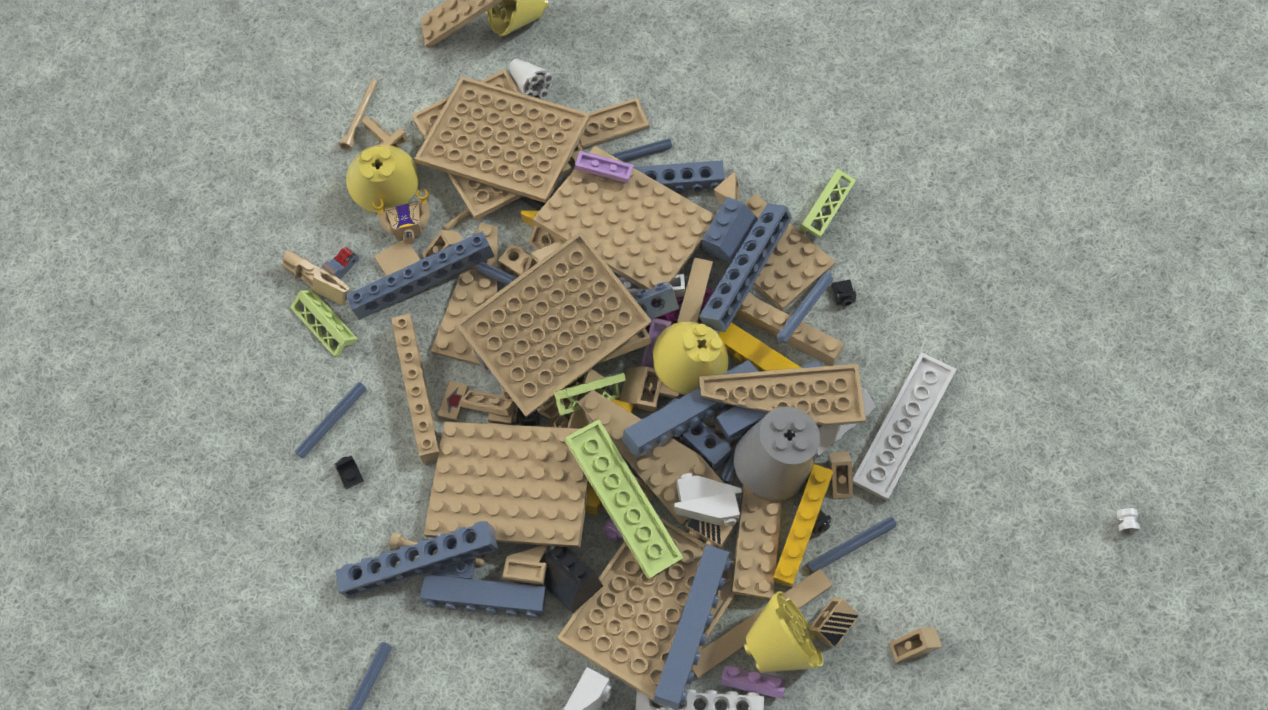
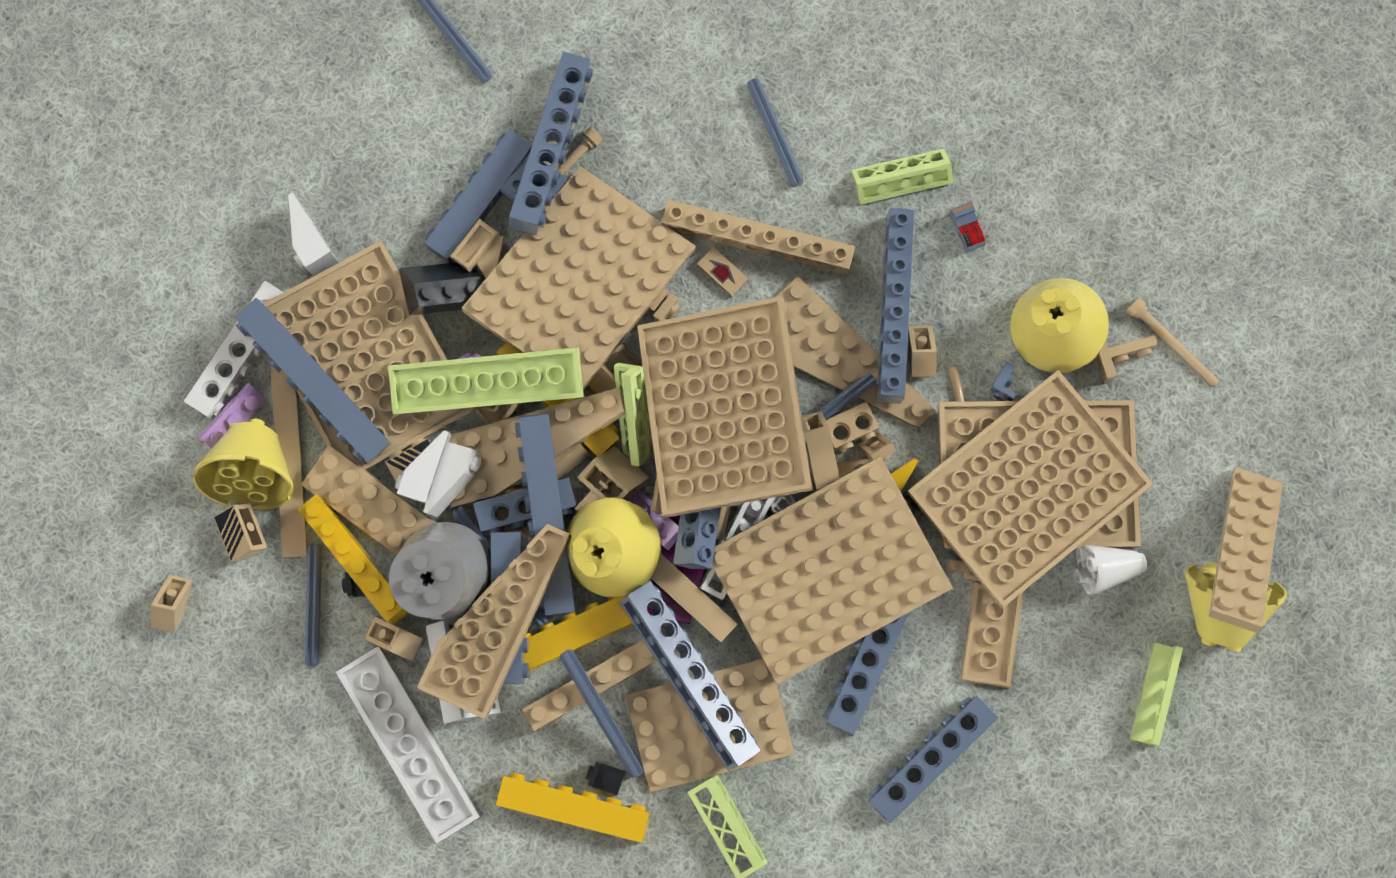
camera: 120 degrees right, 15 degrees up
(318, 279) = (964, 189): tan arm -> none
(348, 472) = (699, 124): black bracket -> none
(396, 257) = (936, 294): tan tile -> none
(406, 219) = (985, 324): tan torso -> none
(440, 193) = (1004, 379): none -> sand blue bracket
(488, 402) = (695, 301): tan tile -> none
(526, 236) = (877, 447): none -> tan plate
(592, 22) = (1156, 694): none -> yellowish green fence
(604, 167) = (907, 577): lavender plate -> none
(643, 150) = (932, 642): sand blue axle -> none
(717, 112) = (982, 720): none -> sand blue brick
(728, 188) = (808, 720): tan slope -> none
(728, 230) = (750, 687): sand blue slope -> none
(876, 299) = (572, 808): none -> yellow brick

